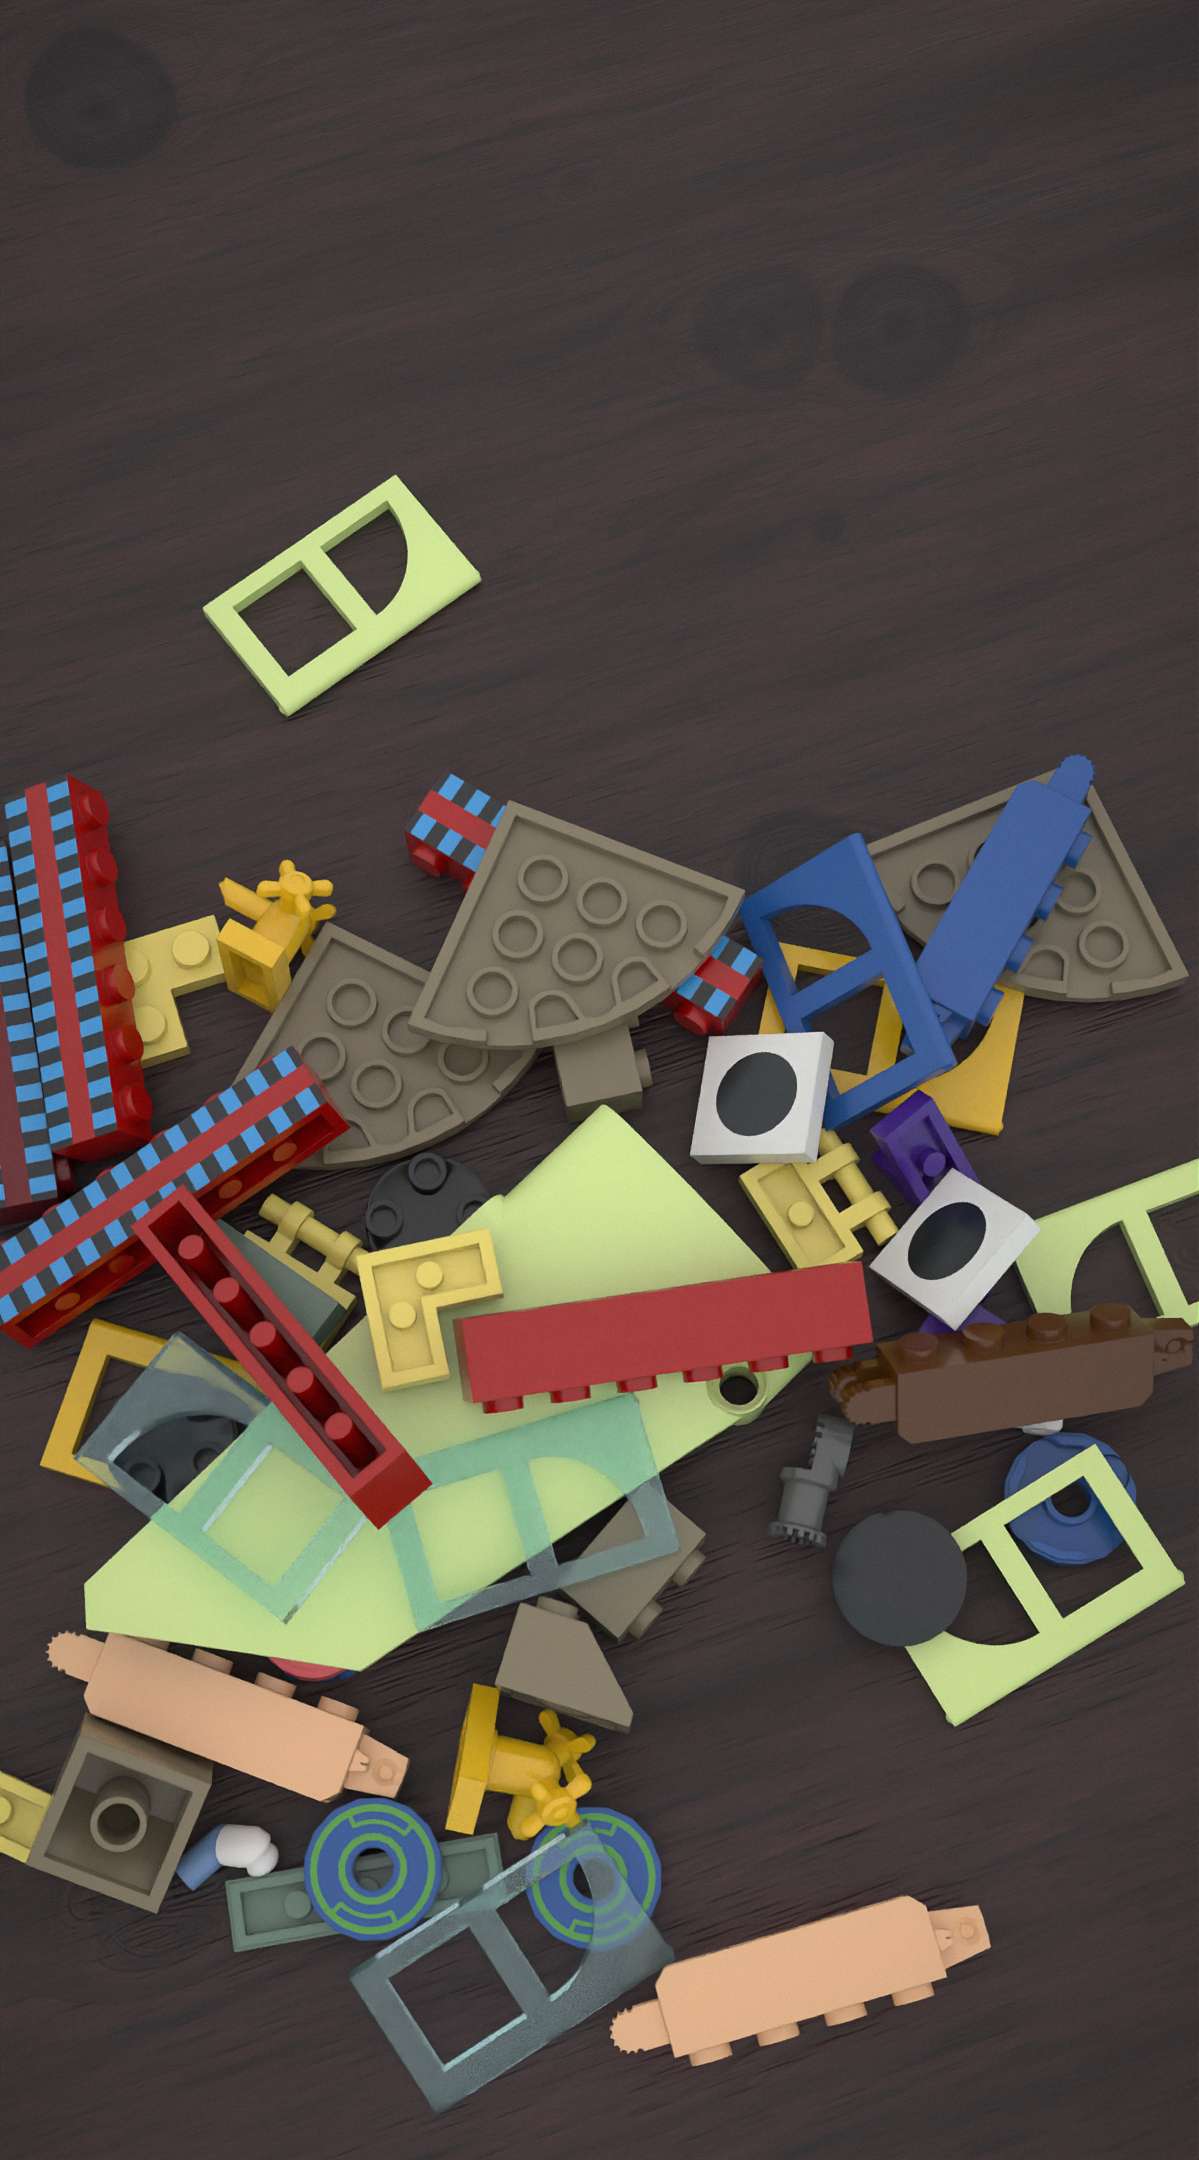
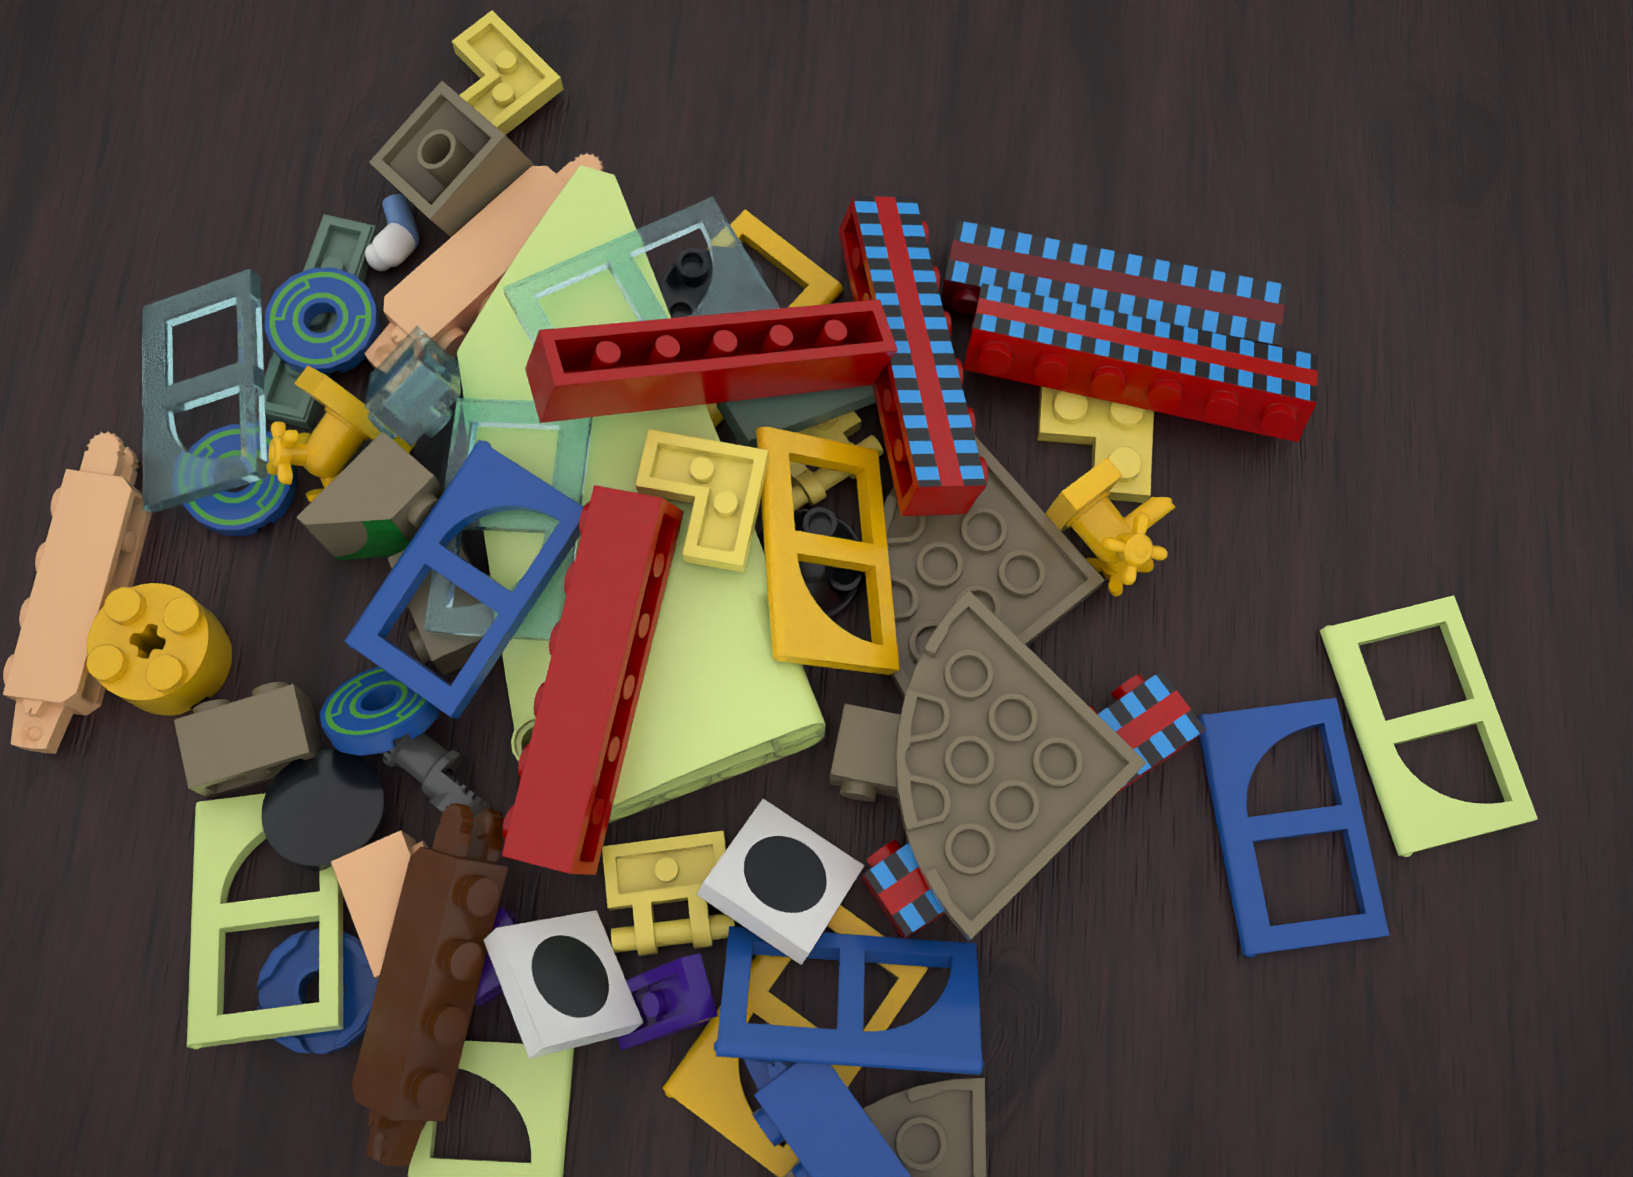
camera: 110 degrees right, 0 degrees up
(422, 1693) = (413, 389): none -> clear light blue brick
(433, 747) = (1230, 753): none -> blue window
(509, 1553) = (480, 487): none -> blue window
(517, 1161) = (797, 624): none -> yellow window
(748, 1587) = (374, 711): none -> blue tile
(854, 1865) = (128, 642): none -> yellow brick
(866, 1696) = (246, 740): none -> dark tan brick
(950, 1473) = (372, 888): none -> light nougat slope

